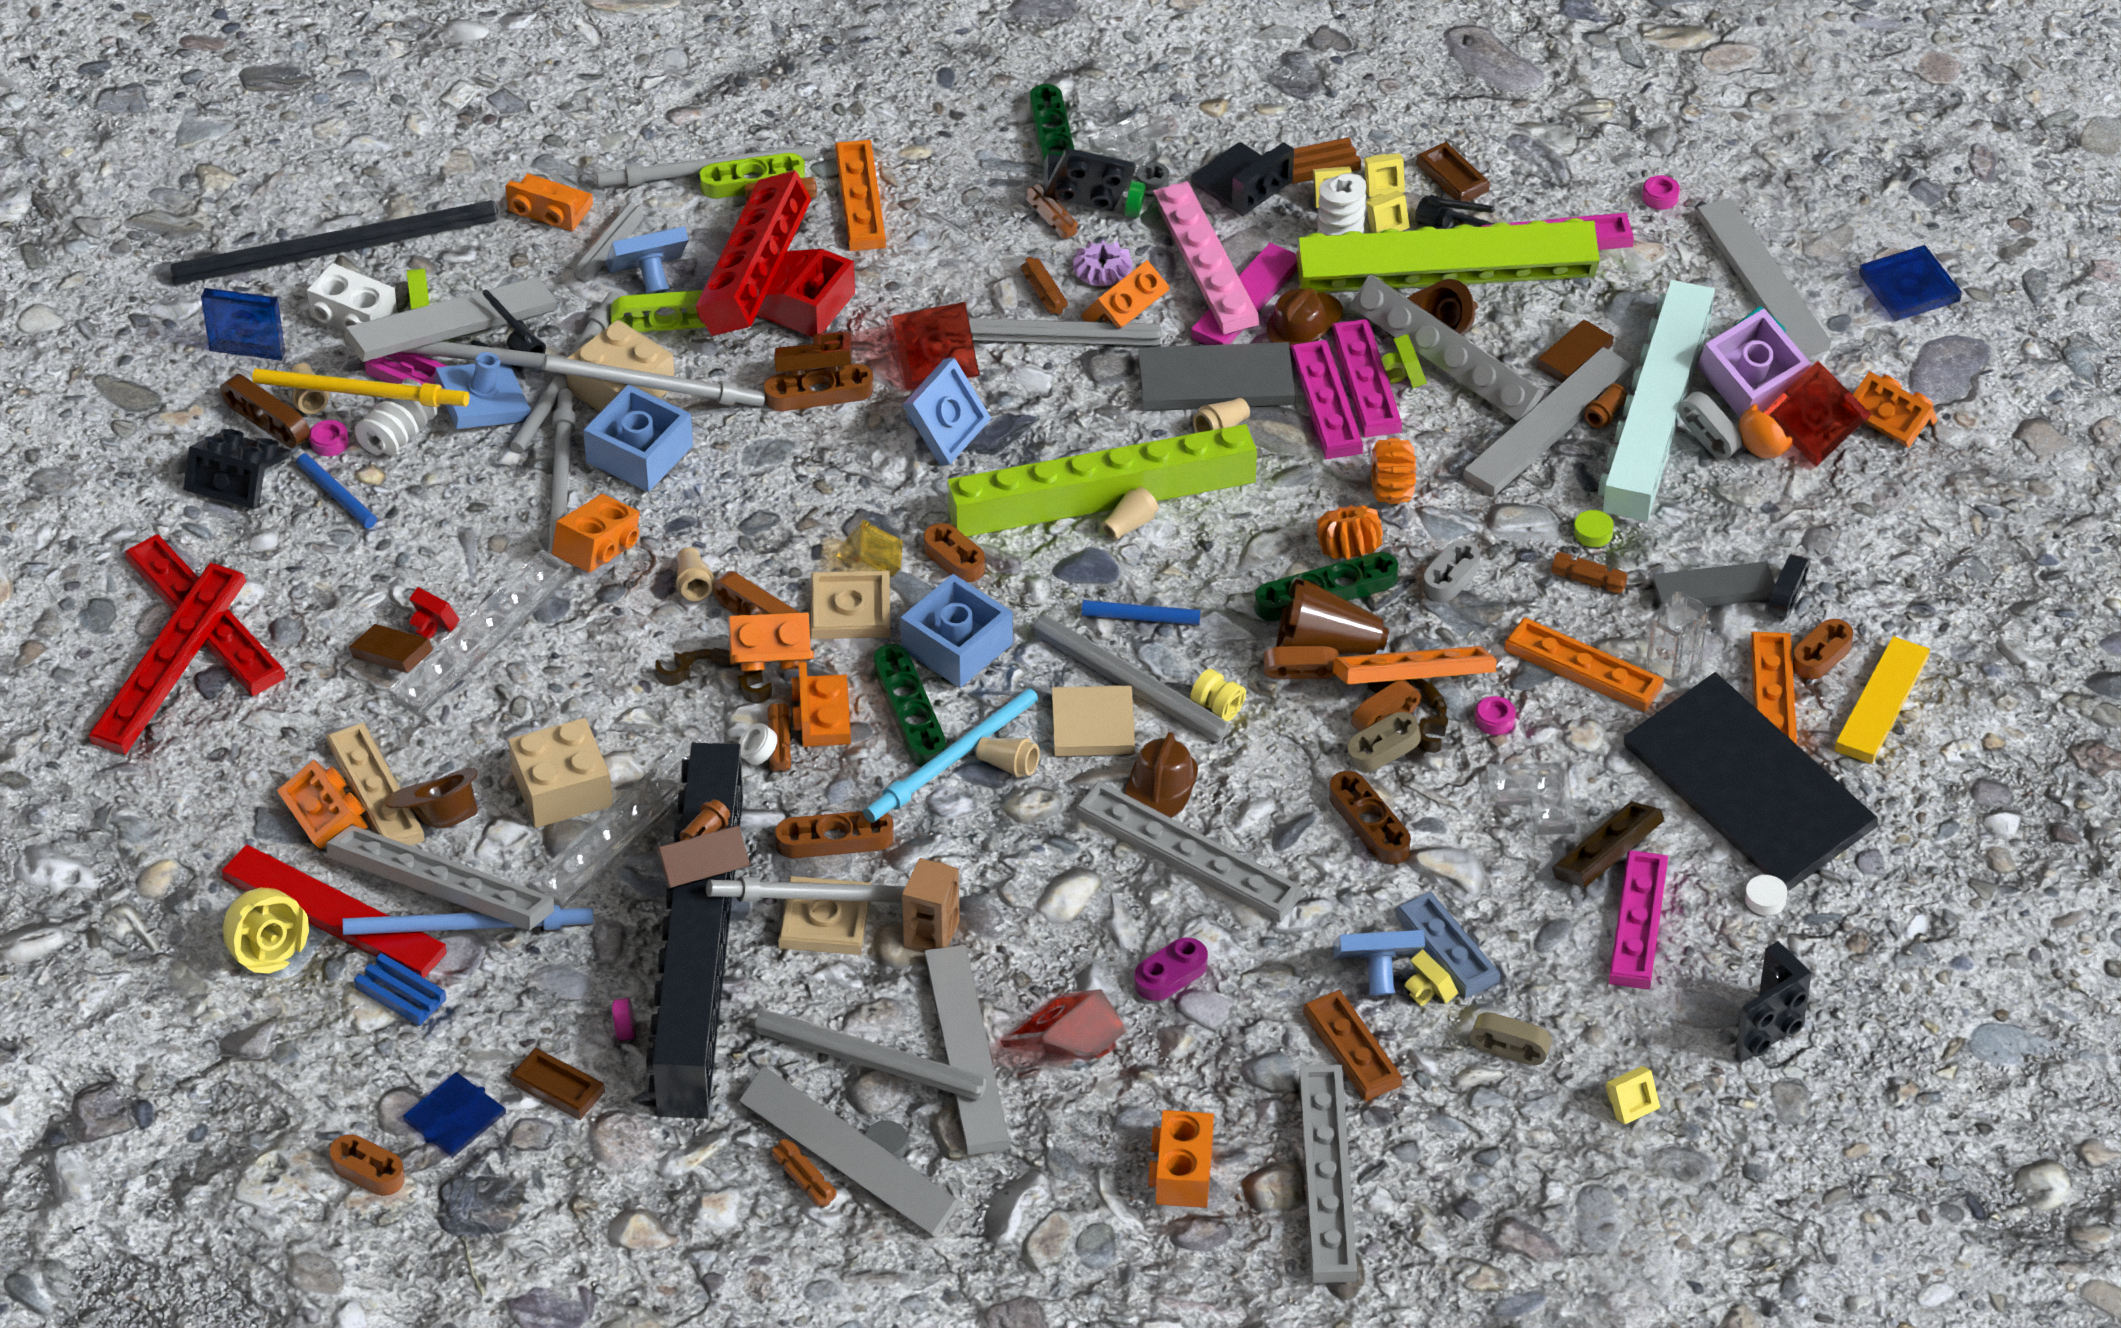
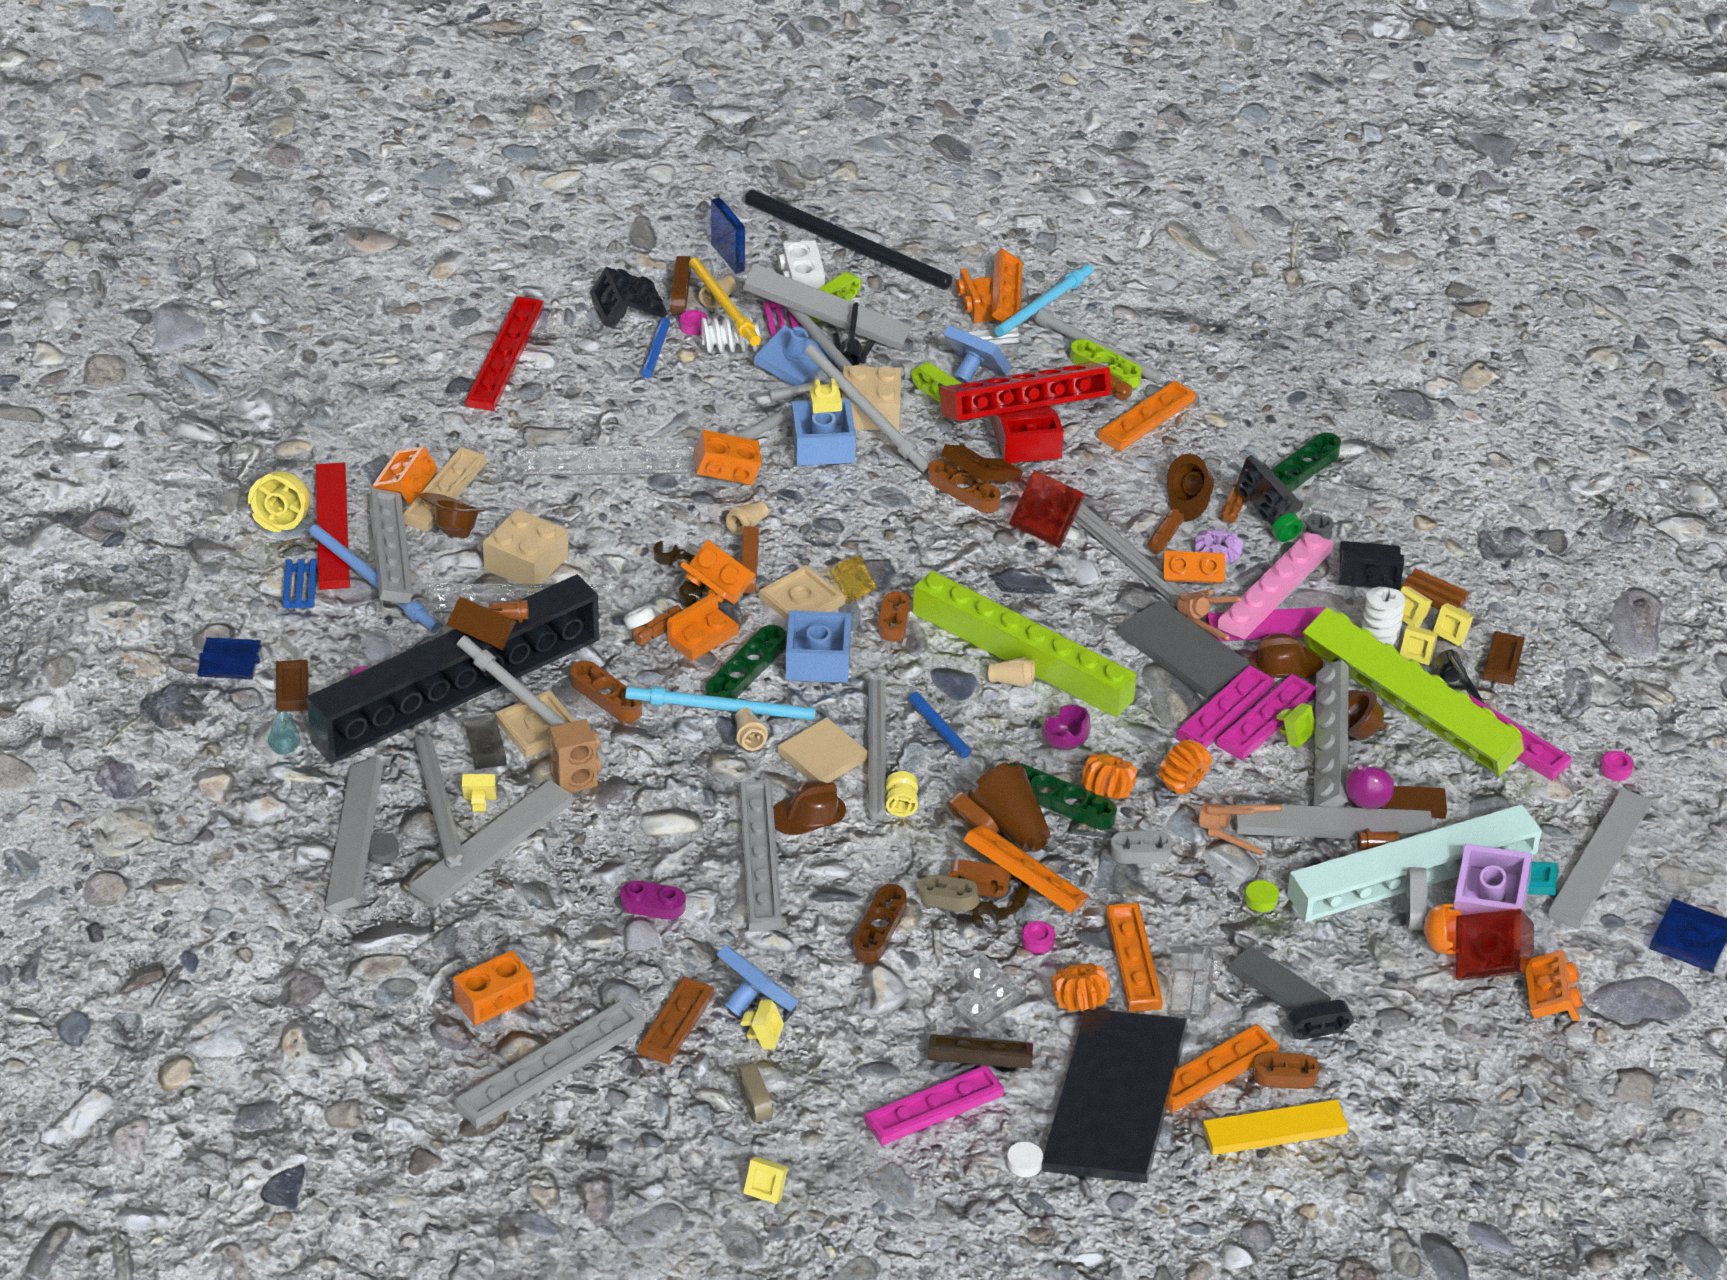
camera: 50 degrees right, 5 degrees down
(167, 658) = (451, 355): red tile -> none
(364, 1169) = (160, 642): dark orange beam -> none
(391, 648) = (551, 432): reddish brown tile -> none
(431, 613) = (597, 430): red tile -> none
(564, 172) = (1006, 285): none -> orange tile
(601, 120) = (1071, 281): none -> medium azure bar
(614, 399) = (825, 397): none -> light yellow tile
(635, 1128) = (283, 734): none -> clear light blue cone
(804, 1173) = (321, 825): dark orange axle -> none
(815, 970) = (485, 741): none -> clear smoke plate
(889, 1014) = (479, 789): none -> light yellow tile
(946, 411) = (994, 542): medium blue tile -> none
(1012, 227) = (1189, 486): none -> reddish brown piece
(1070, 1026) = (547, 877): clear red slope -> none
(1179, 327) = (1197, 605): none -> nougat plant
(1221, 415) = (1147, 667): tan cone -> none
(1252, 520) = (1068, 728): none -> magenta hair
(1449, 944) = (811, 1021): sand blue tile -> none
(1471, 491) = (1218, 816): none -> nougat plant
(1551, 364) = (1369, 786): none -> magenta hair
(1589, 572) = (1218, 914): dark orange axle -> none
(1603, 721) = (1081, 987): none -> orange gear
(1778, 1008) = (905, 1209): black bracket -> none

